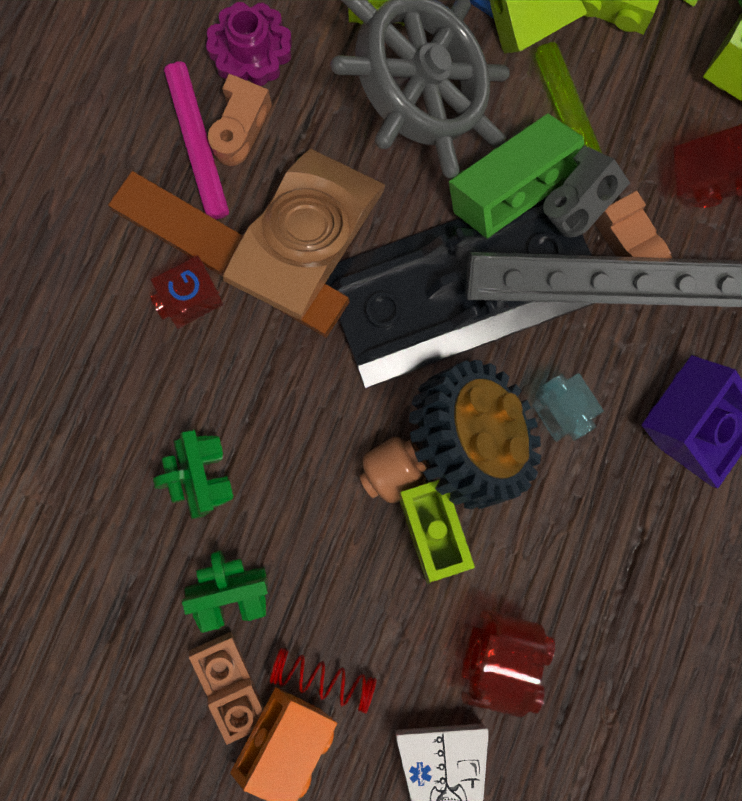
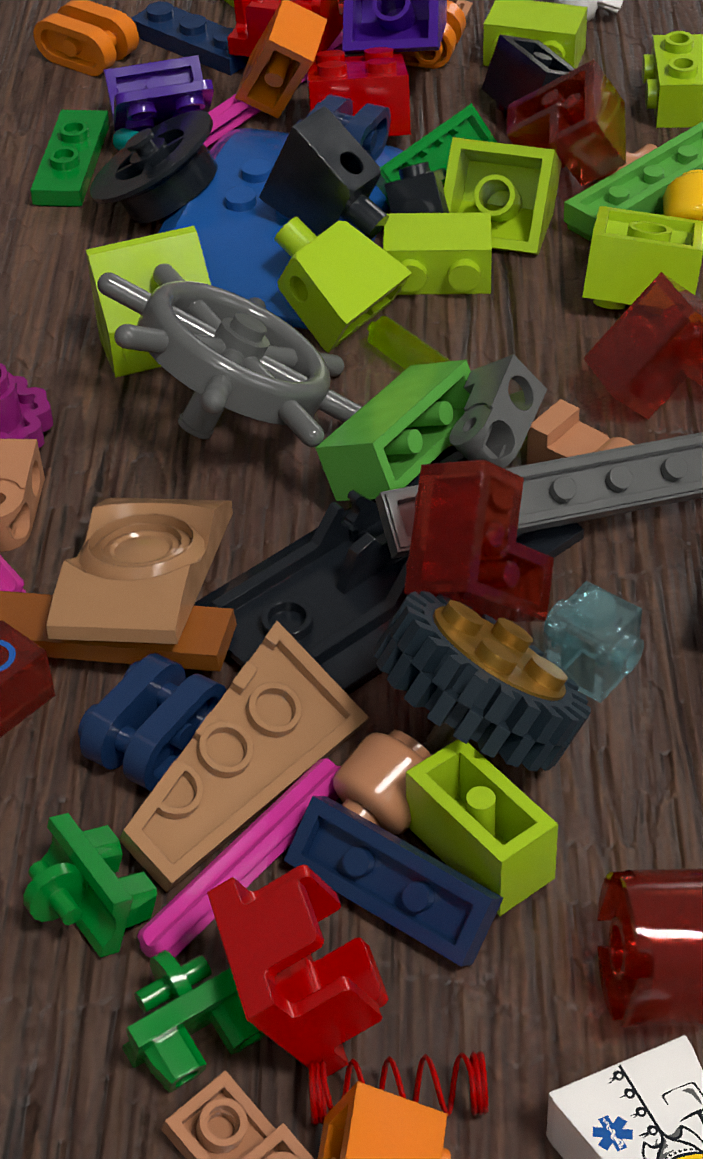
camera: 15 degrees left, 35 degrees down
(276, 338) = (147, 719): none -> dark blue brick
(285, 600) = (283, 992): none -> red panel
(293, 486) = (243, 859): none -> dark pink axle
(324, 411) = (242, 758): none -> medium nougat wing
(372, 540) = (394, 880): none -> dark blue plate
(512, 328) = (469, 546): none -> clear red brick

